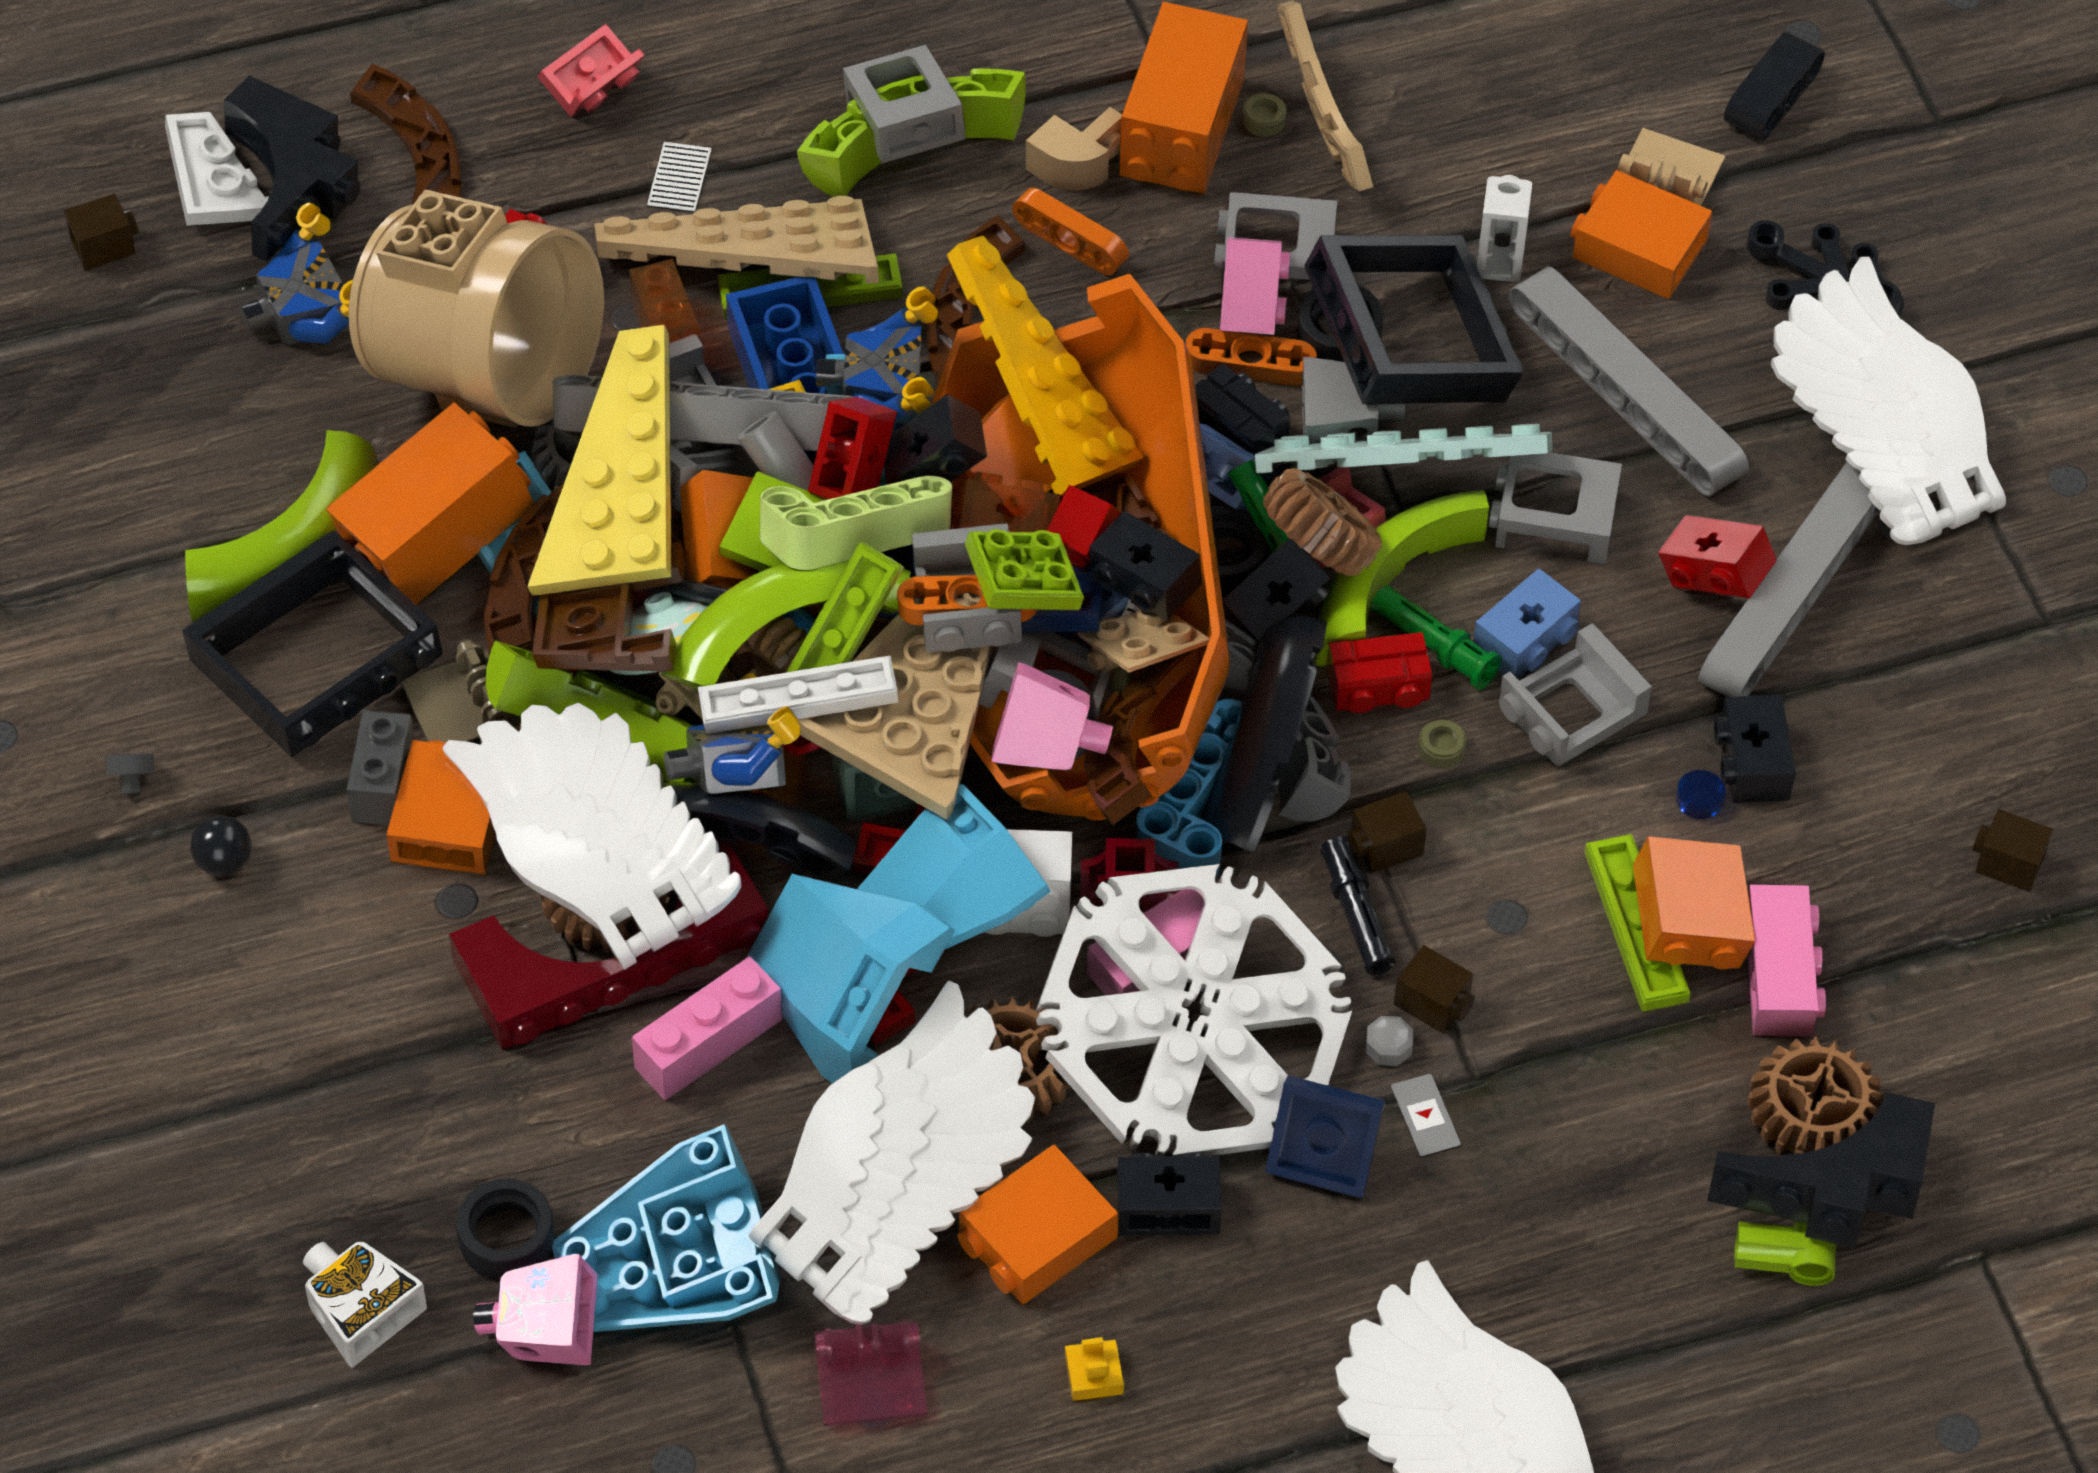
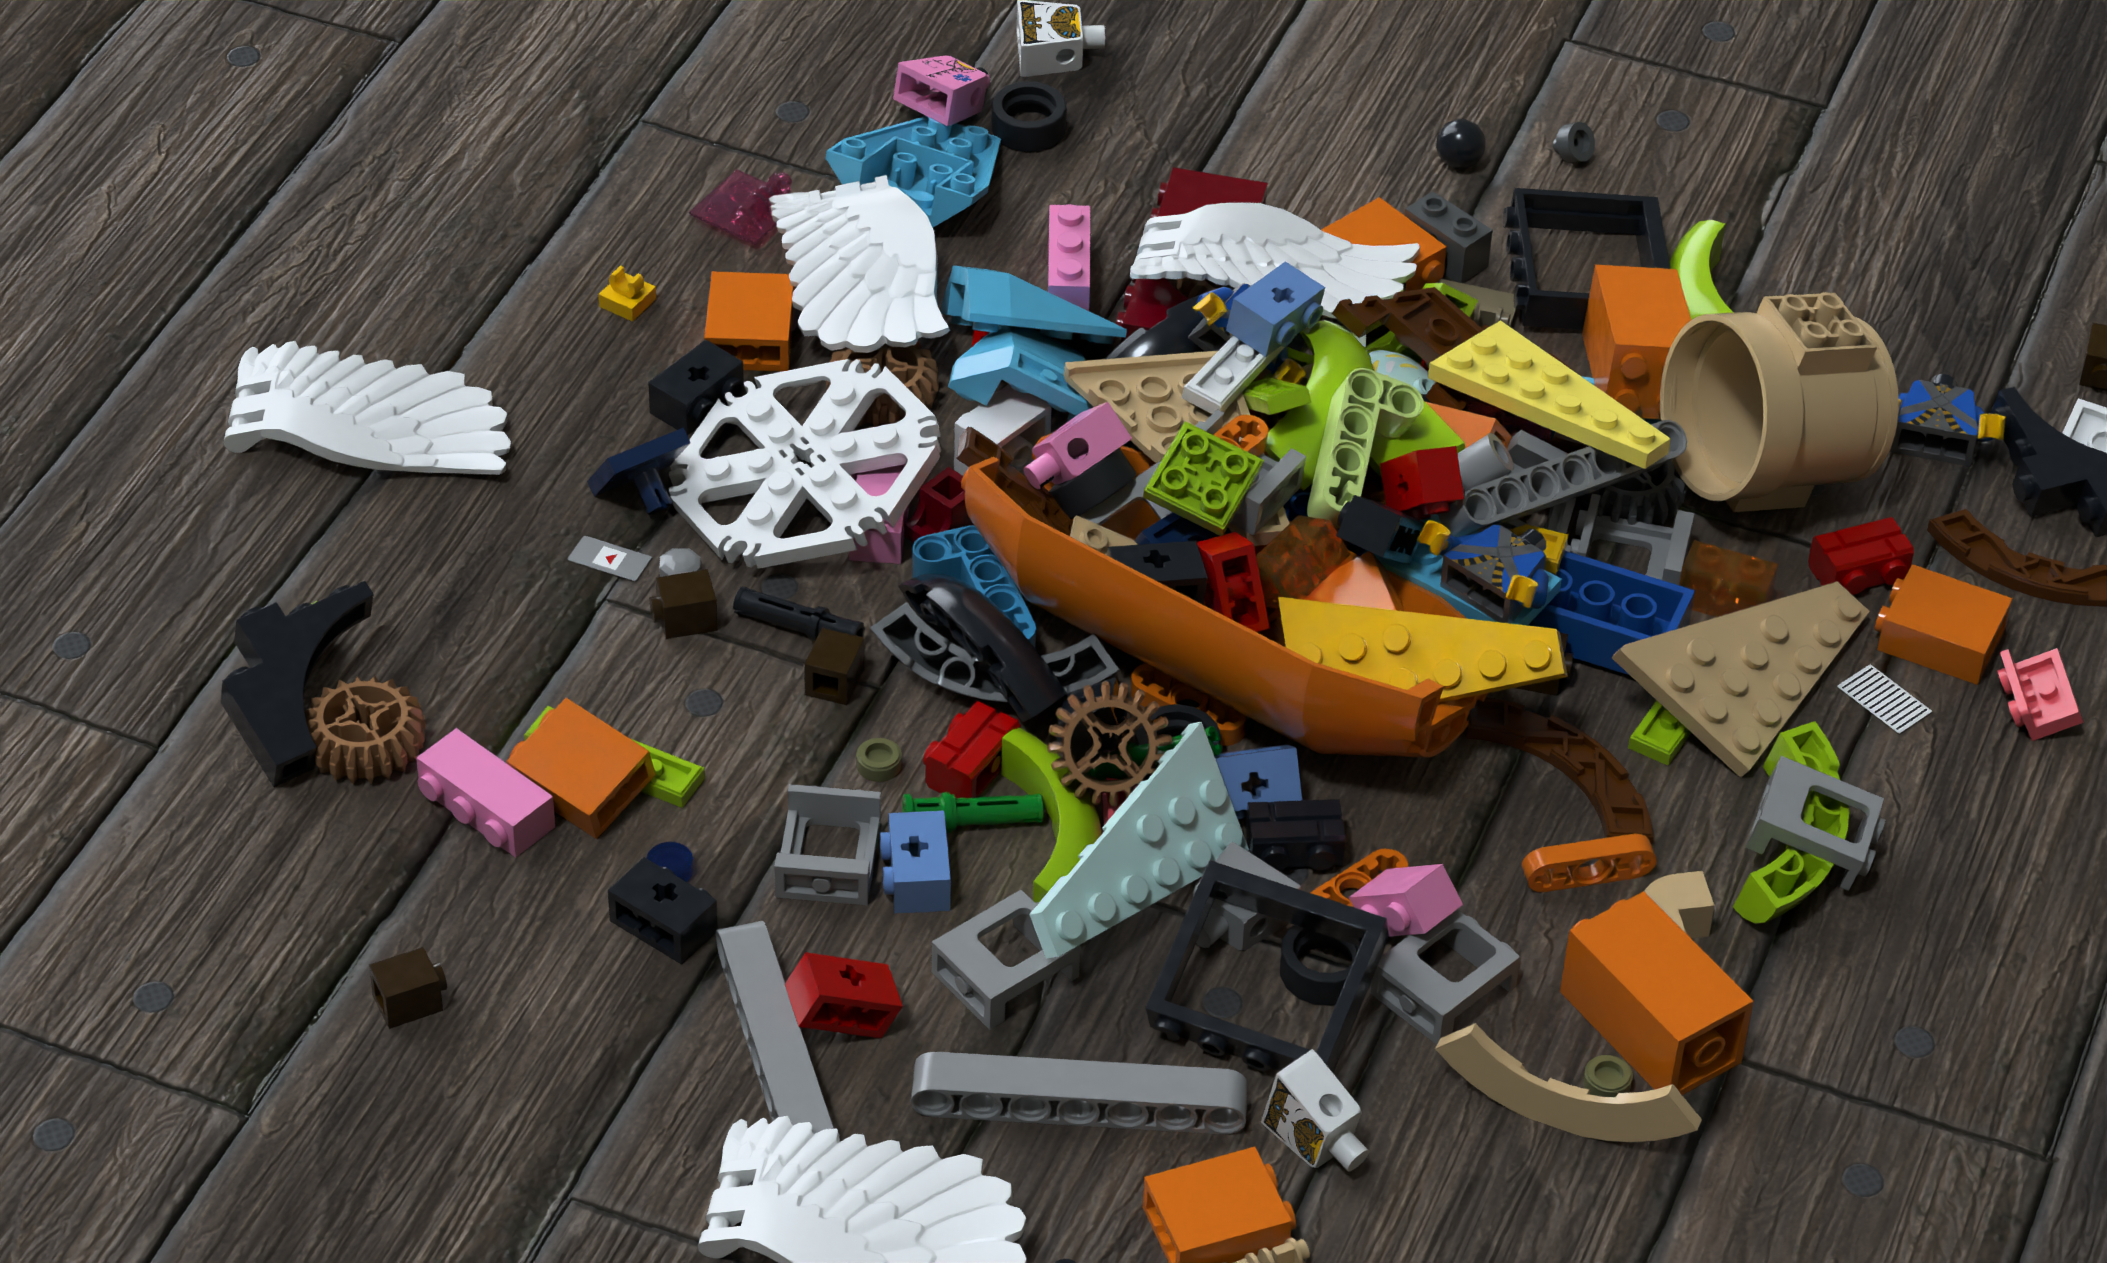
camera: 130 degrees right, 10 degrees down
(568, 164) = (1942, 623): none -> orange brick
(735, 679) = (1276, 309): none -> medium blue brick

